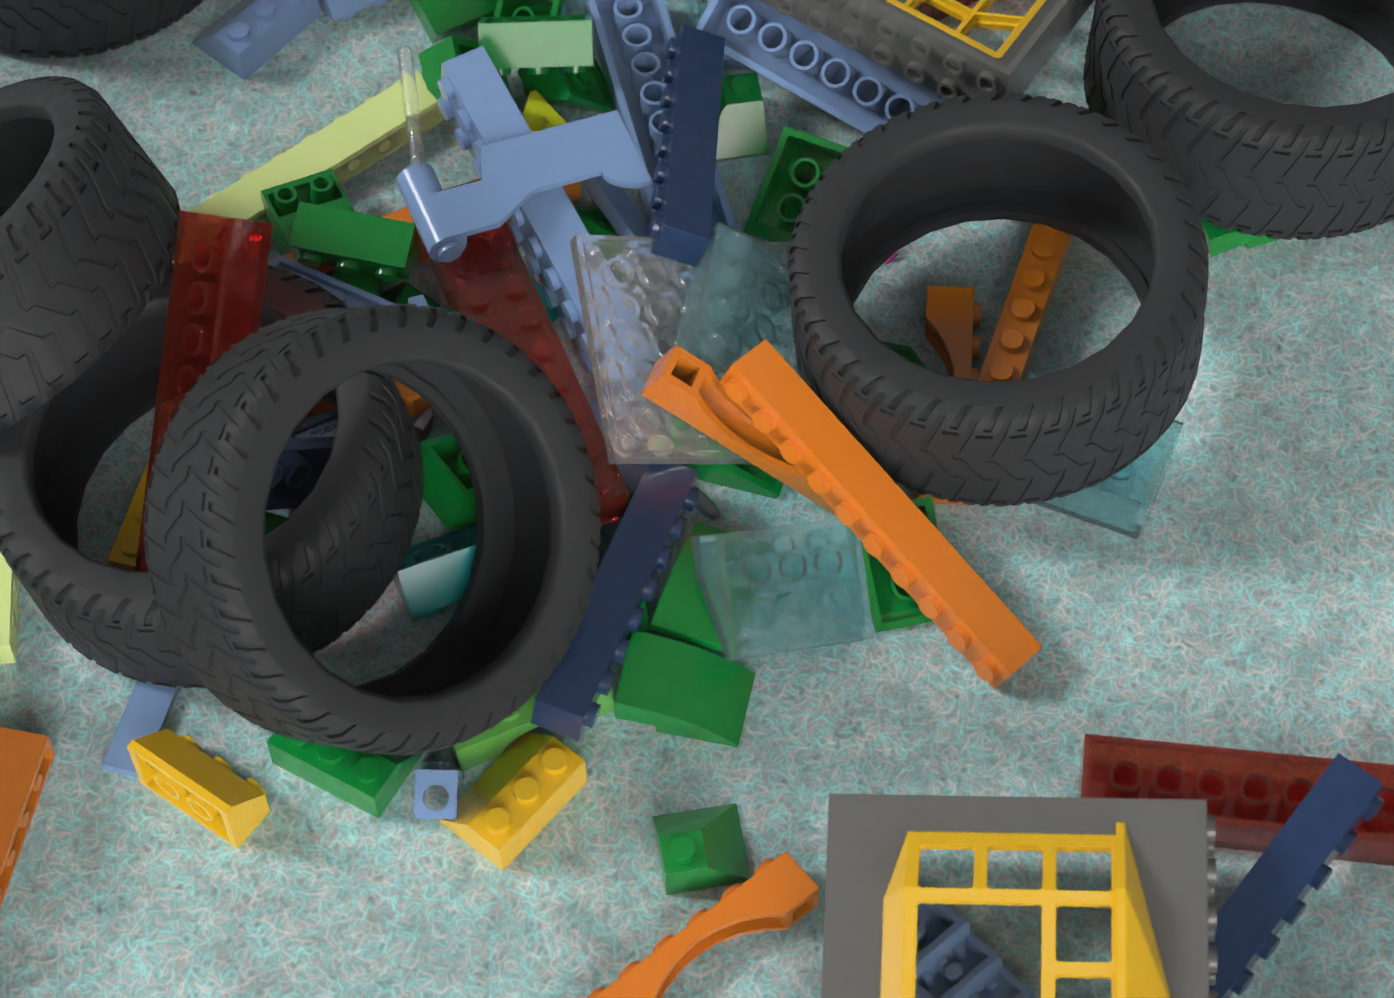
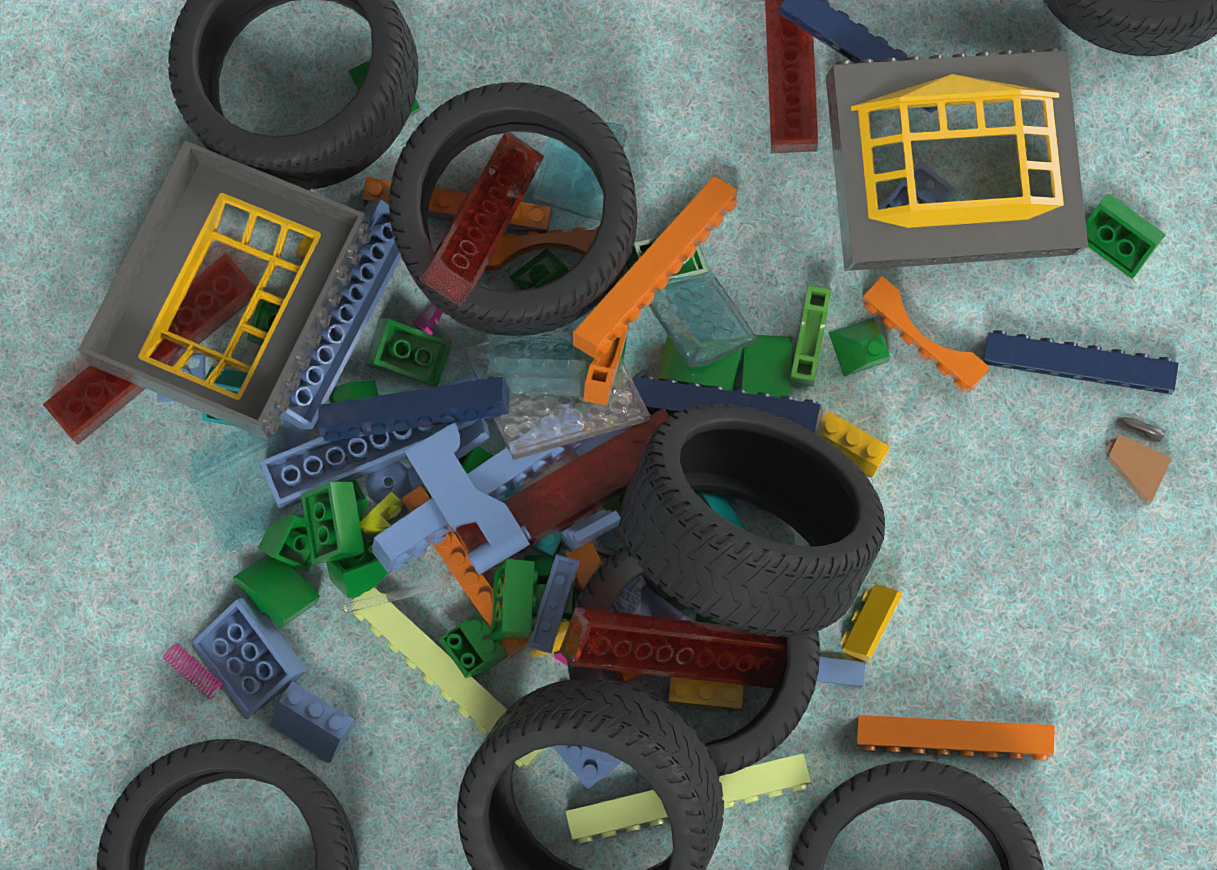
camera: 90 degrees left, 20 degrees up
(769, 776) = (810, 336): none -> bright green arch
(970, 225) = (482, 219): none -> clear red brick

